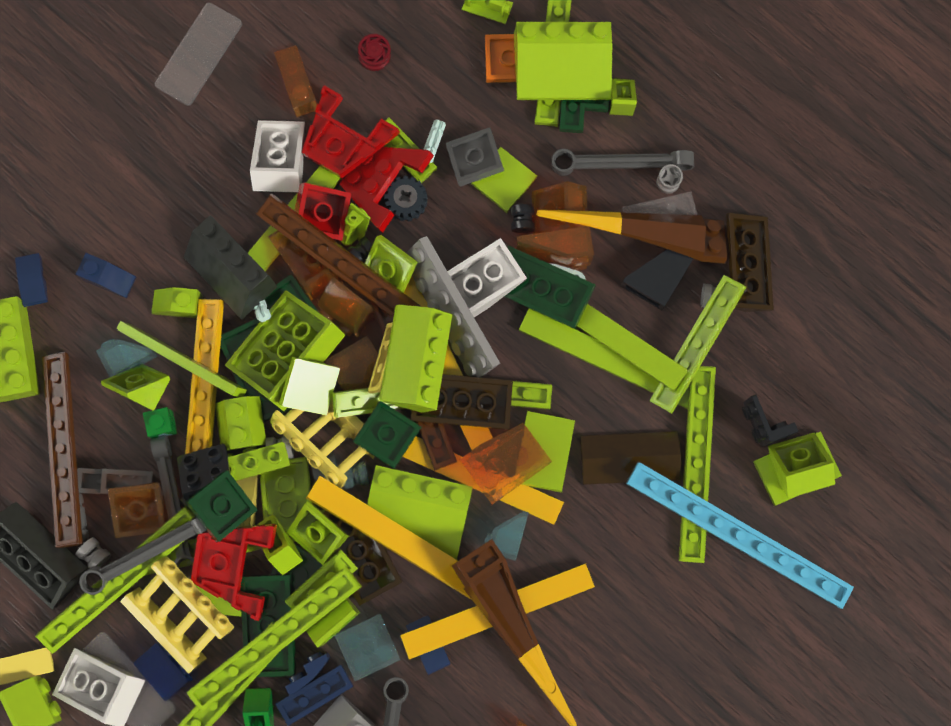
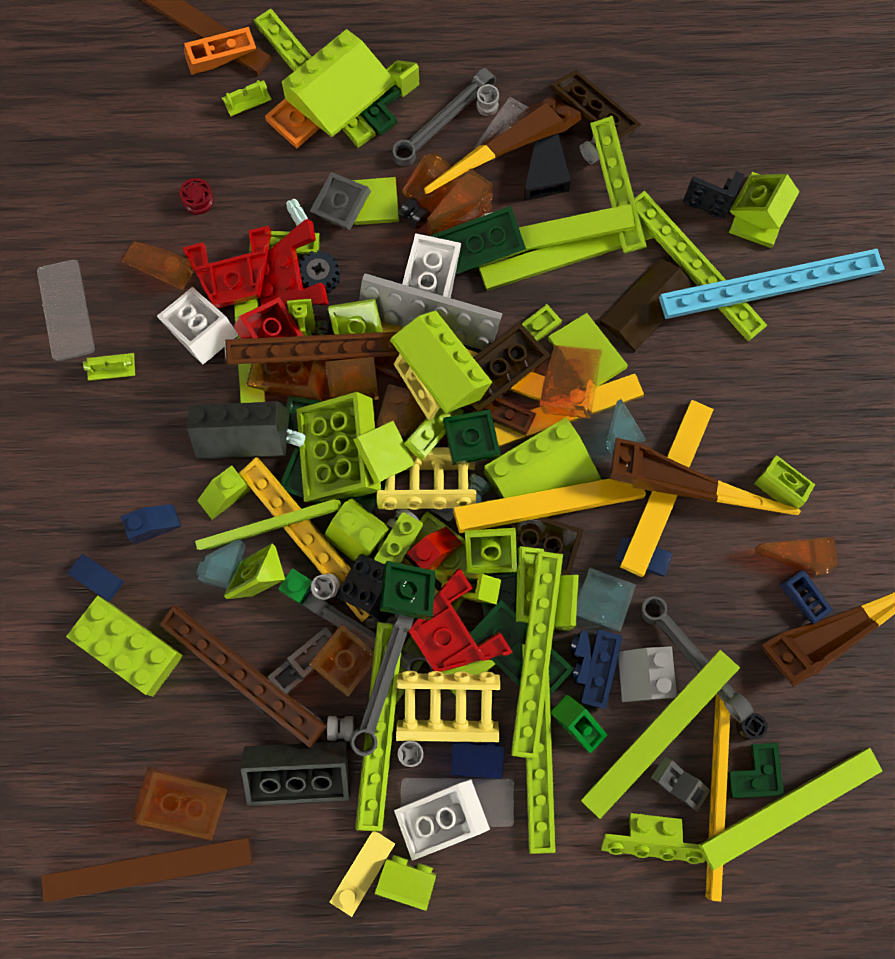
camera: 45 degrees left, 5 degrees down
(117, 621) = (410, 753): none -> light grey wheel
(174, 439) = (321, 588): none -> light grey wheel
(187, 129) = (110, 366): none -> lime hinge
(279, 491) = (434, 549): none -> red slope
(591, 695) = (784, 483): none -> lime slope

